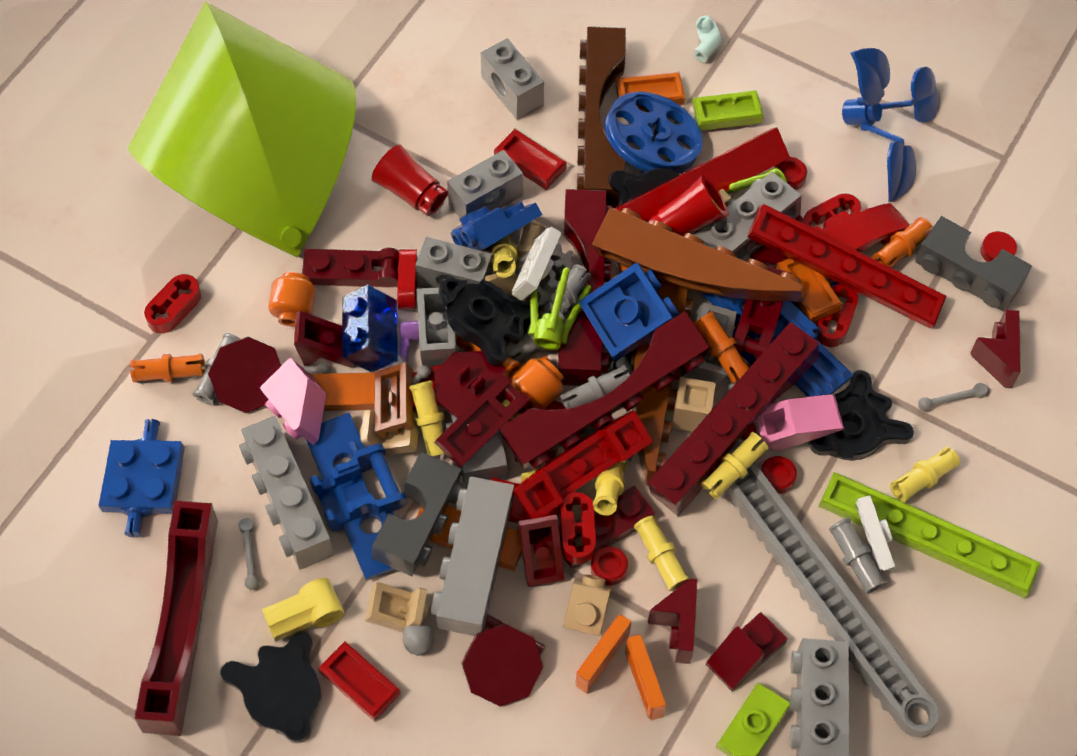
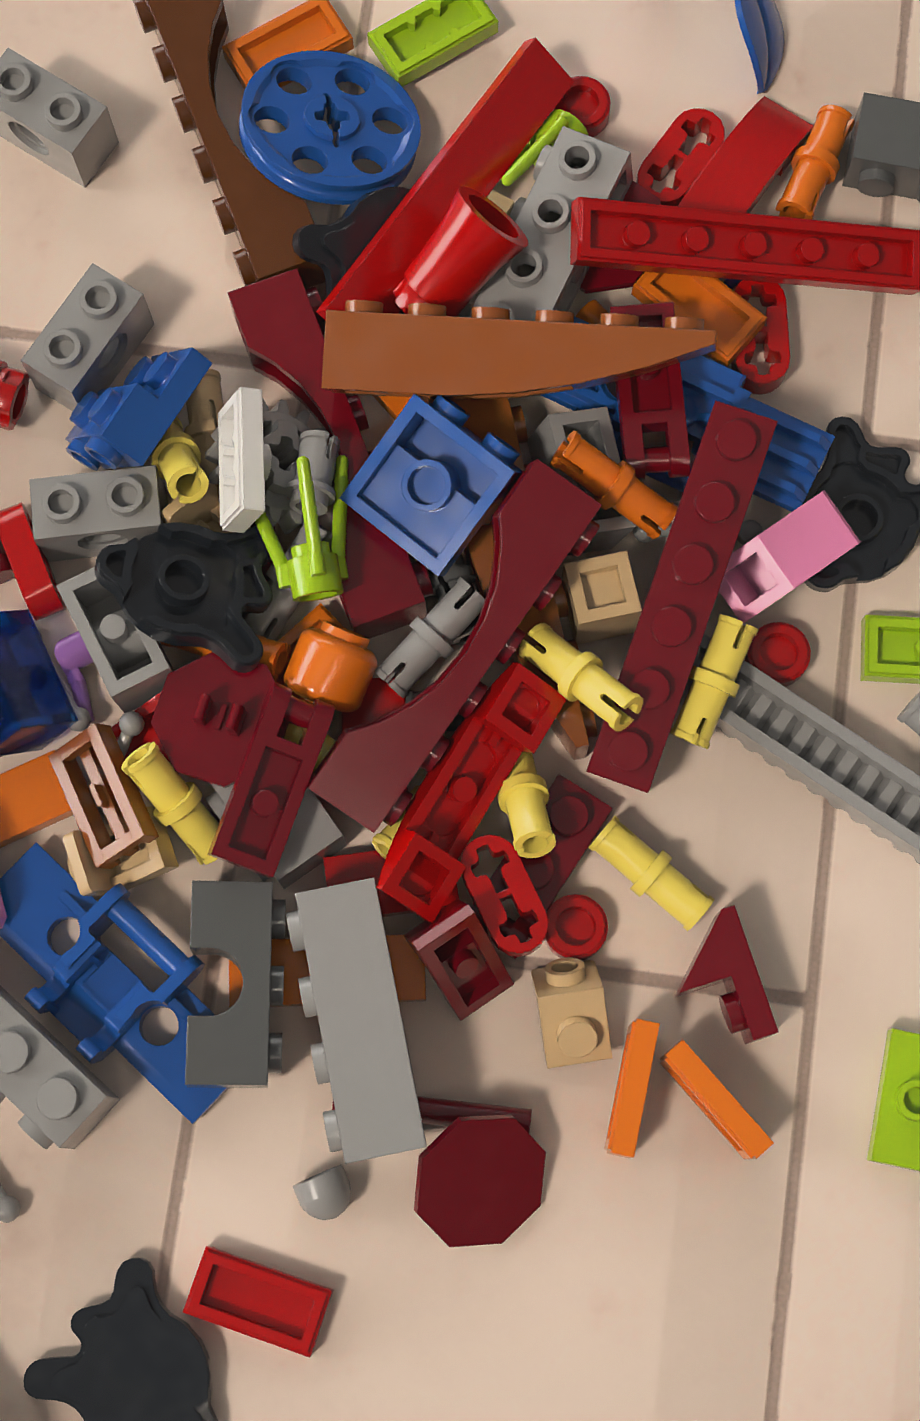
camera: 20 degrees left, 15 degrees up
(313, 606) = (126, 1212): light yellow piece -> none
(396, 607) = (266, 1155): tan bracket -> none
(532, 159) = (140, 252): red tile -> none
(664, 431) = (580, 677): none -> light yellow pin
(745, 651) = (851, 981): dark red slope -> none

